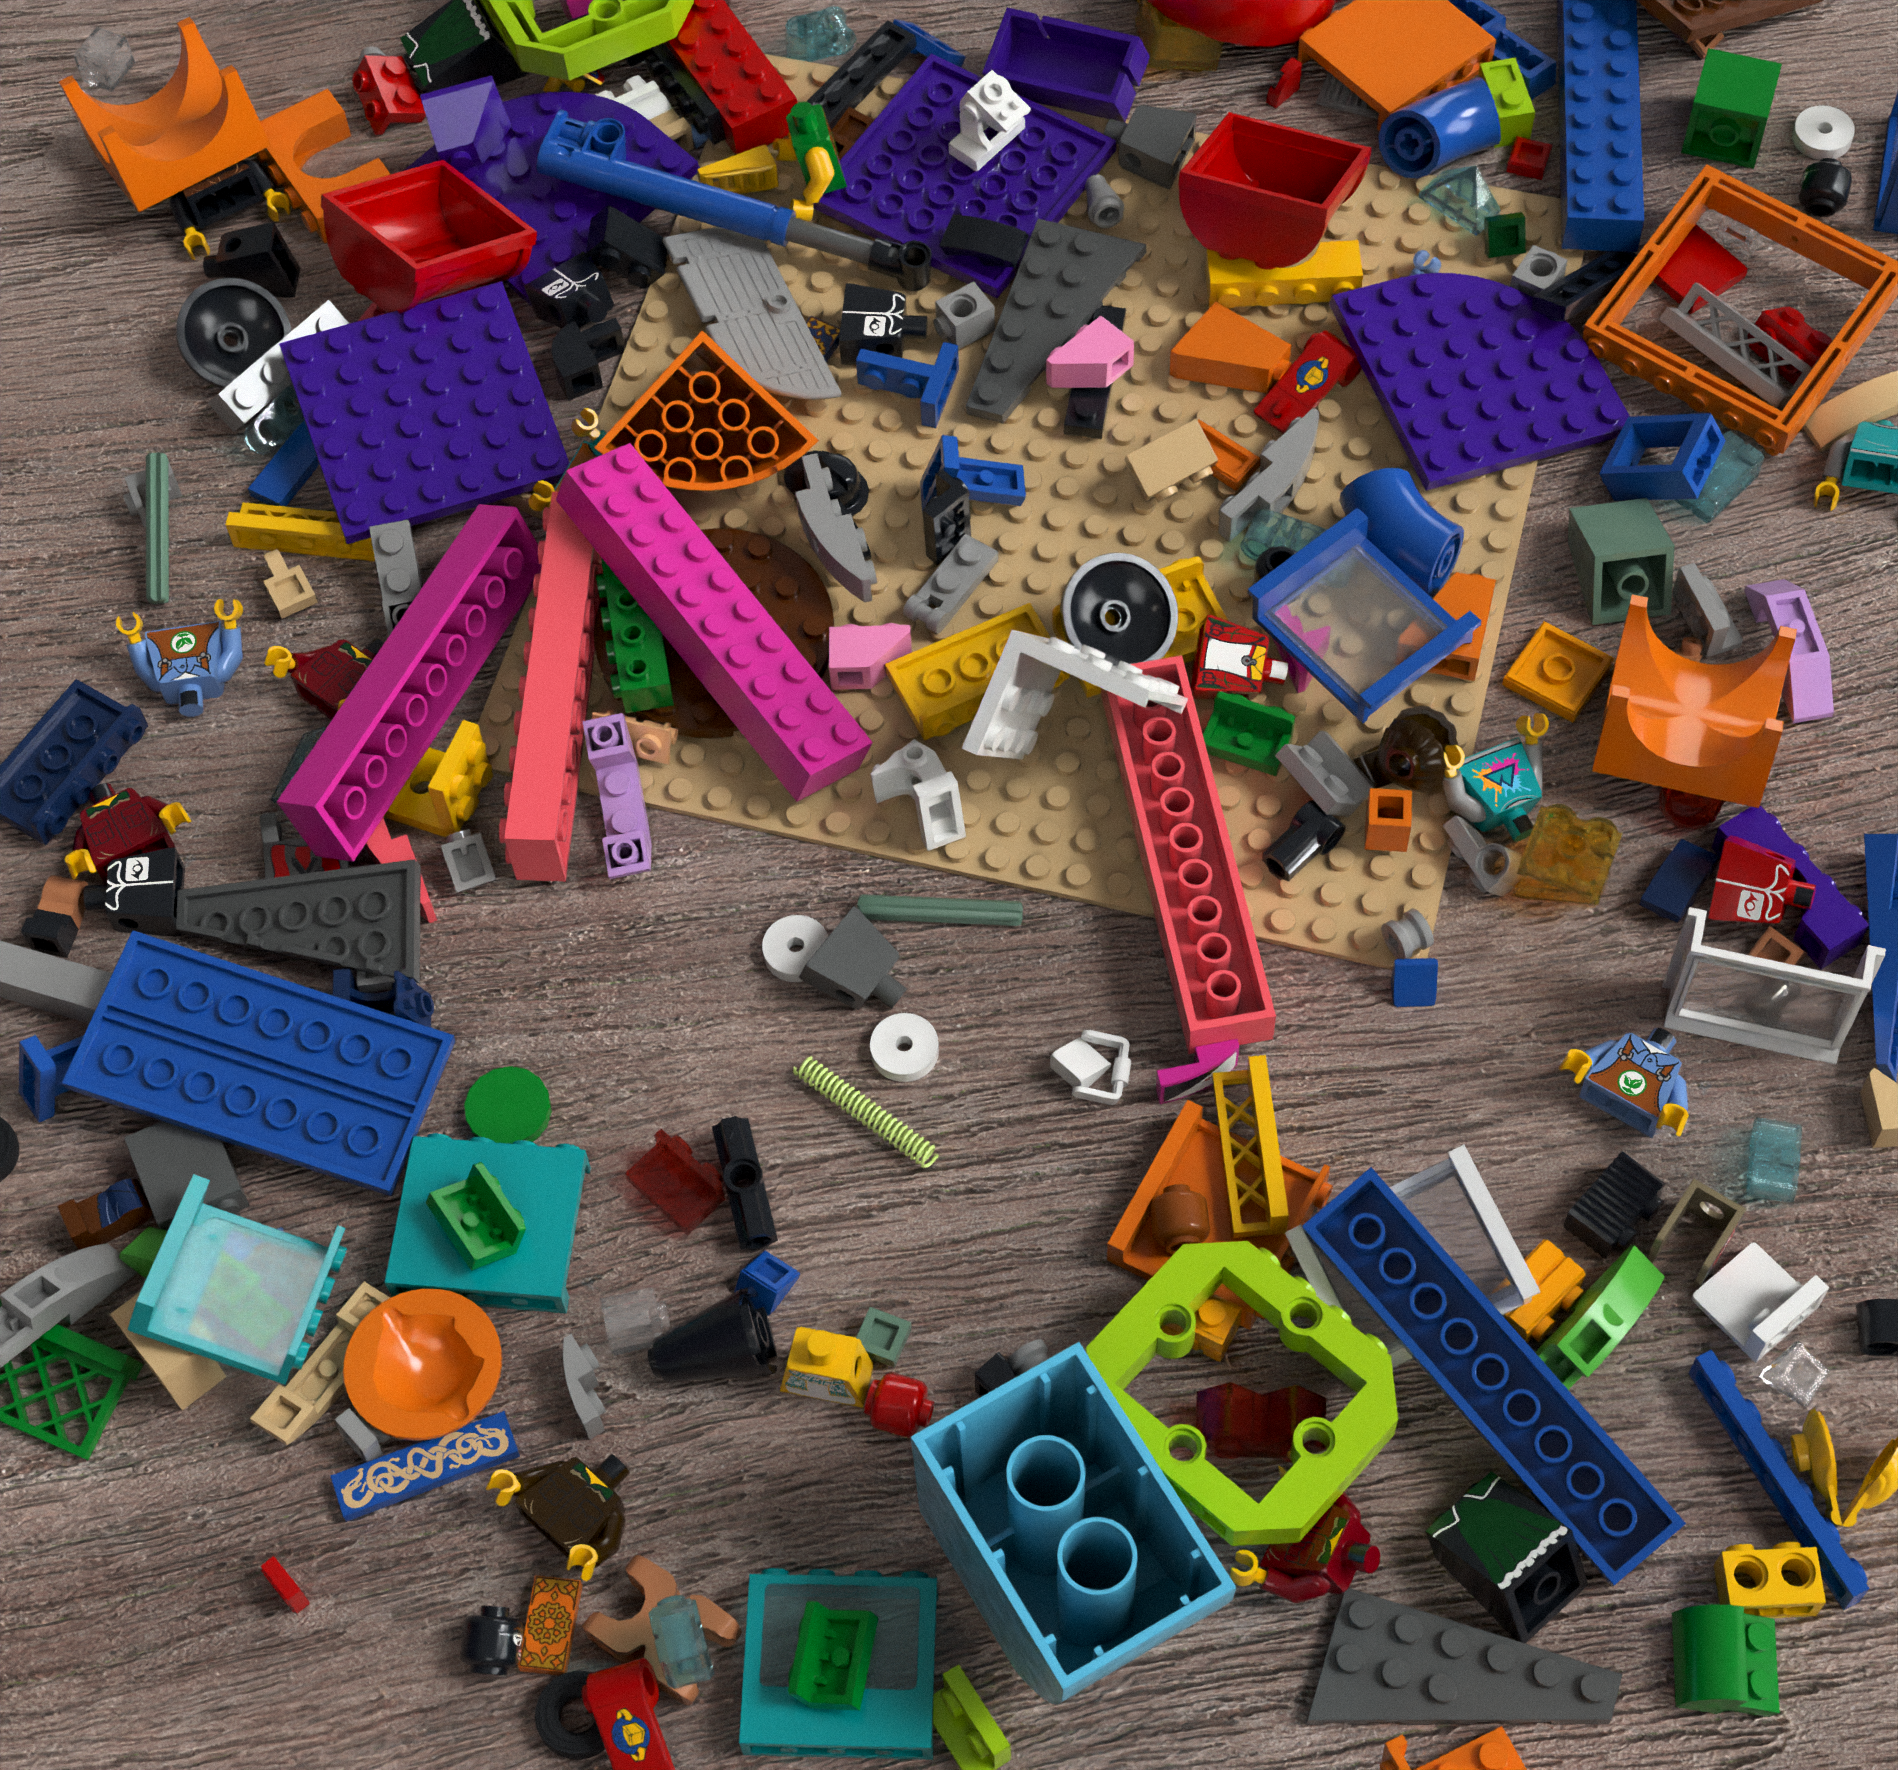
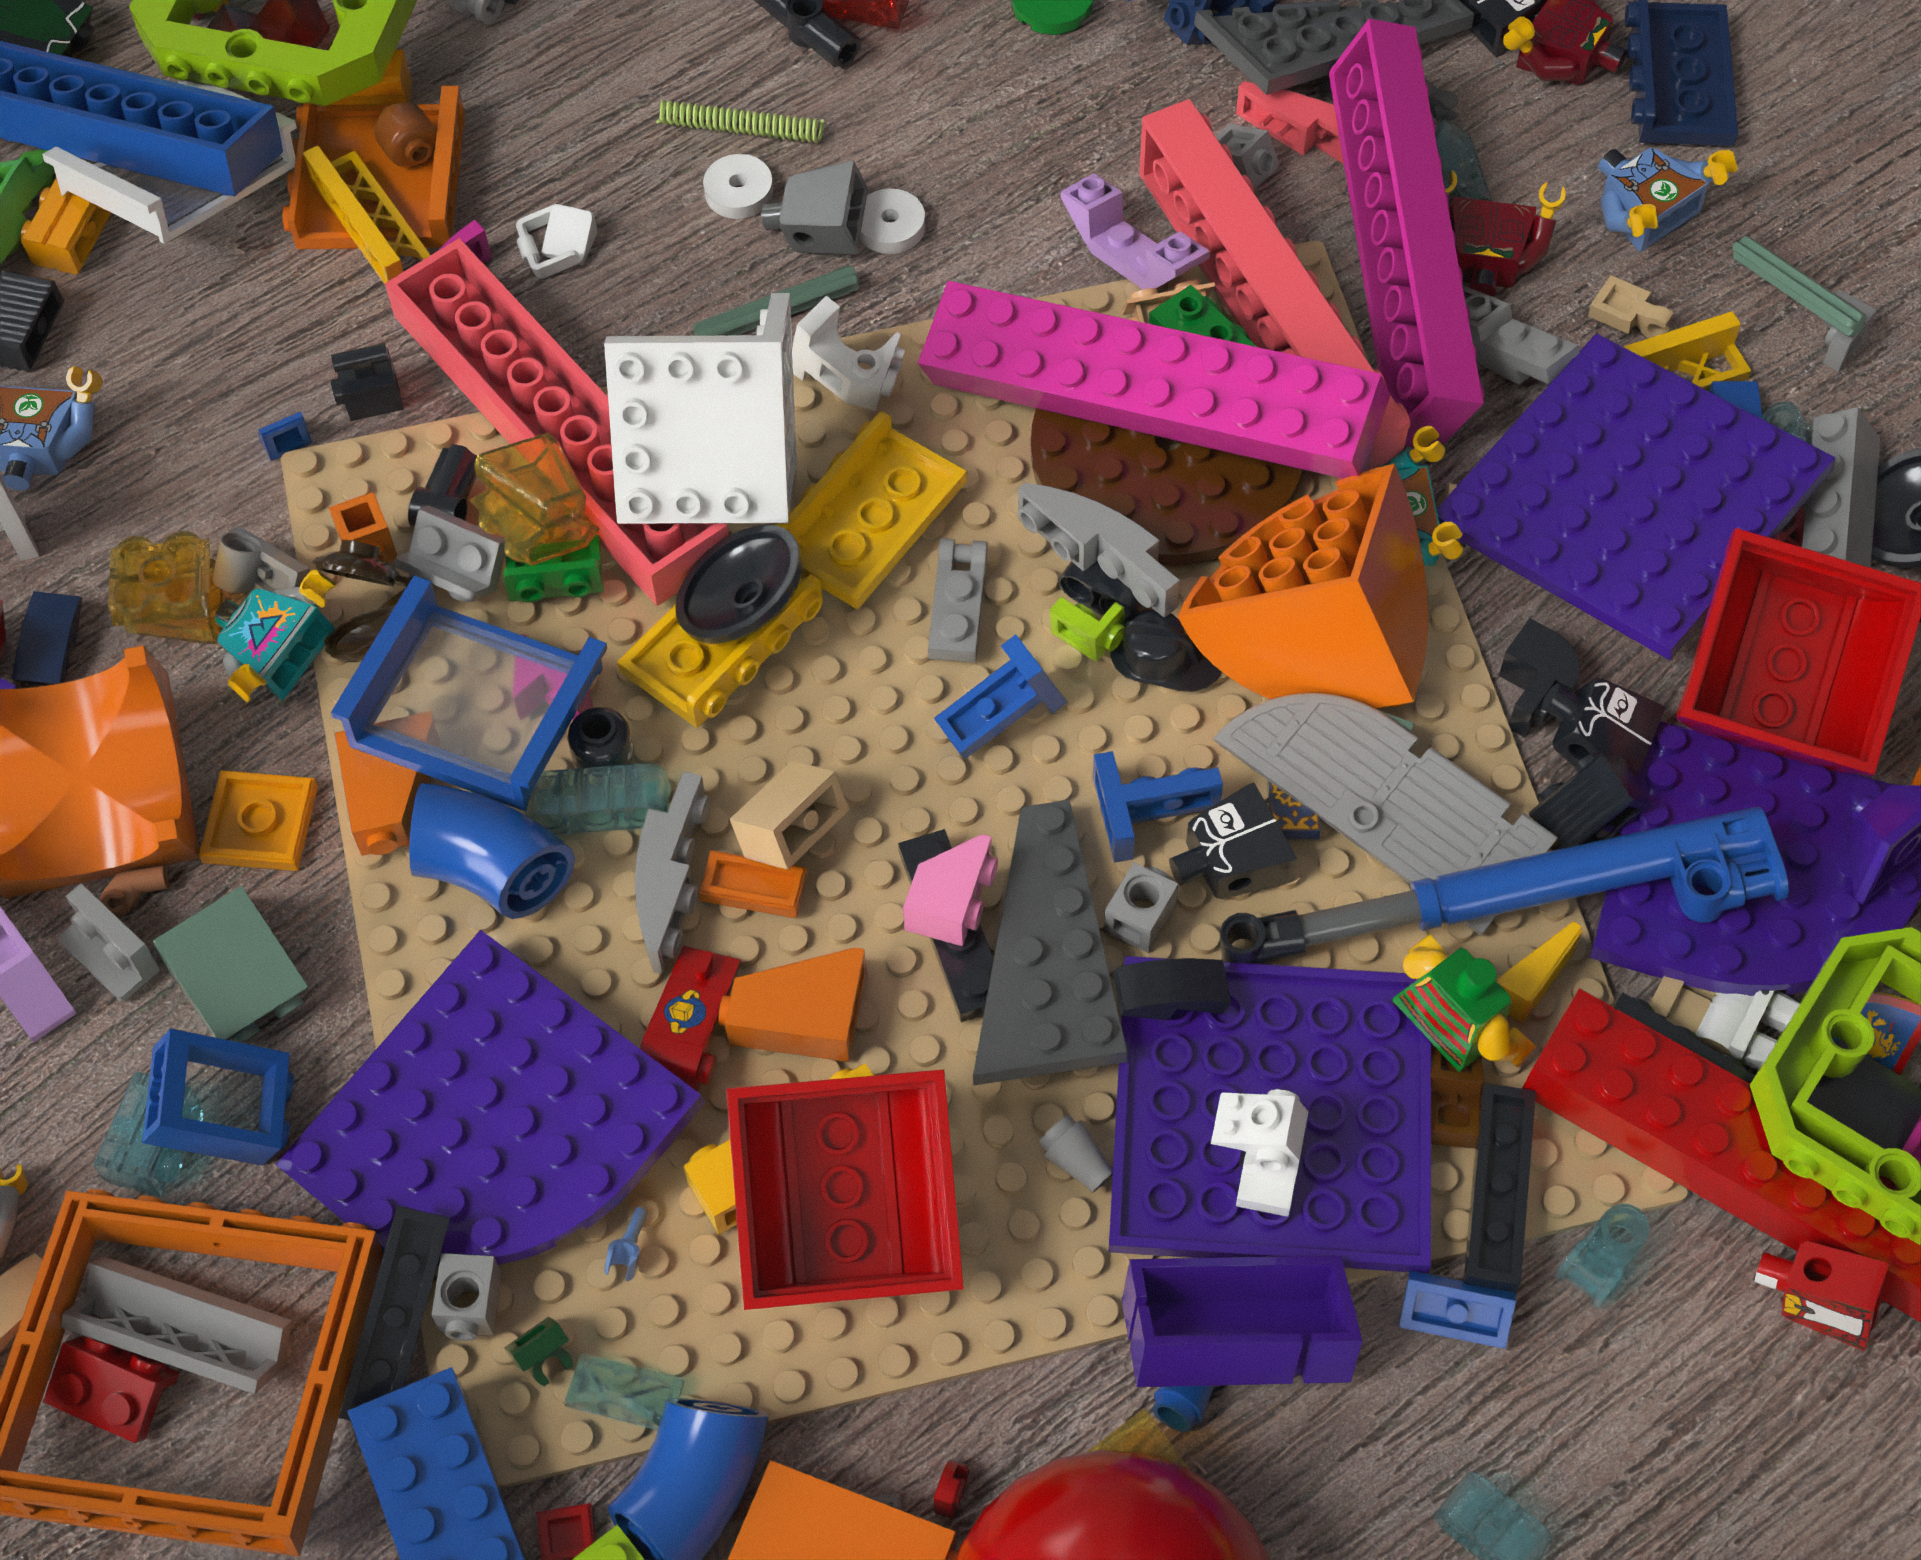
camera: 150 degrees right, 0 degrees up
(453, 785) = (1306, 189): yellow bracket -> none
(861, 653) = (994, 473): bright pink slope -> none
(874, 504) = (1083, 631): none -> lime bracket
(946, 517) = (993, 626): black bracket -> none
(1154, 142) = (1061, 1270): dark grey torso -> none
(1232, 661) = (606, 610): torso -> none
(1244, 750) = (532, 500): none -> clear yellow piece
(1324, 988) = (366, 382): none -> black brick
(1407, 934) = (301, 448): light grey wheel -> none
(1703, 262) = (257, 1445): red tile -> none

